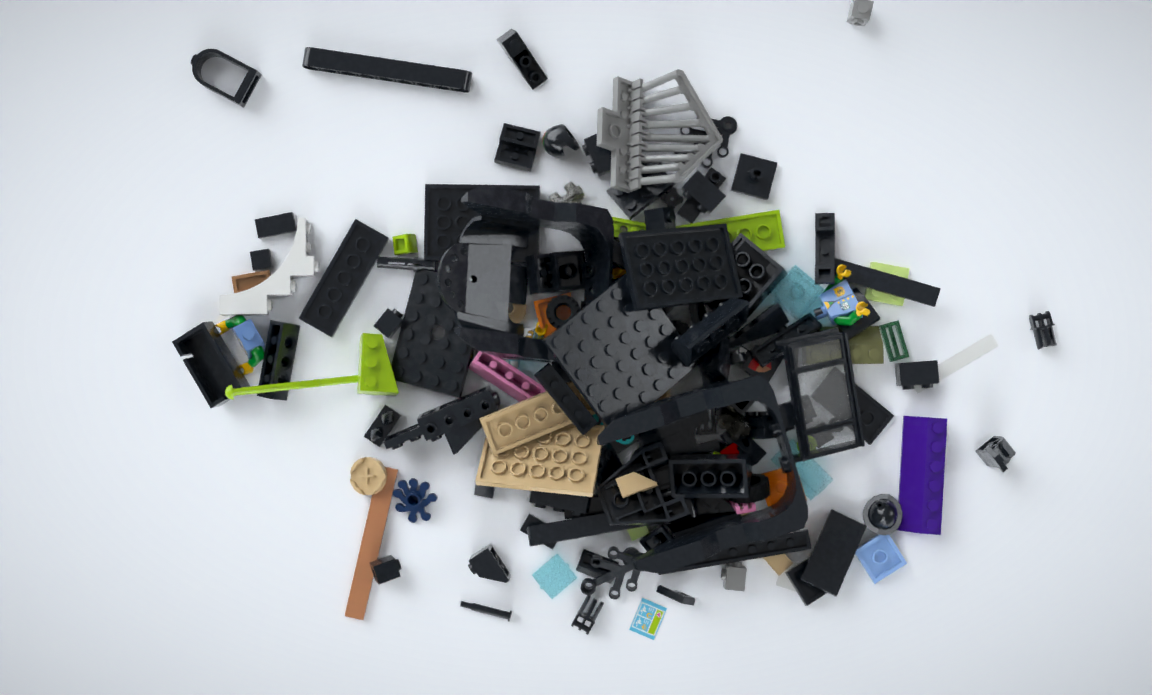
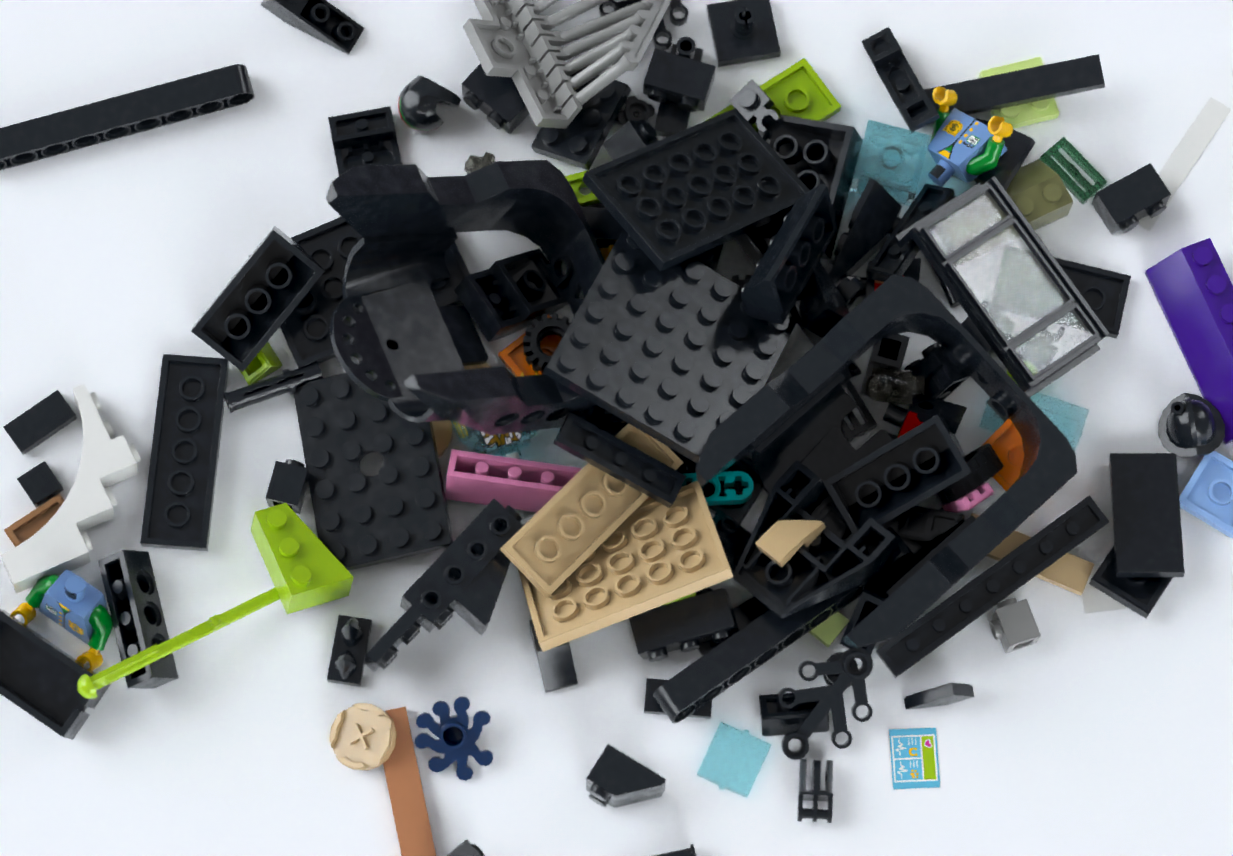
camera: 25 degrees left, 15 degrees down
(417, 213) = (258, 299): none -> black slope
(737, 227) = (755, 106): none -> plate

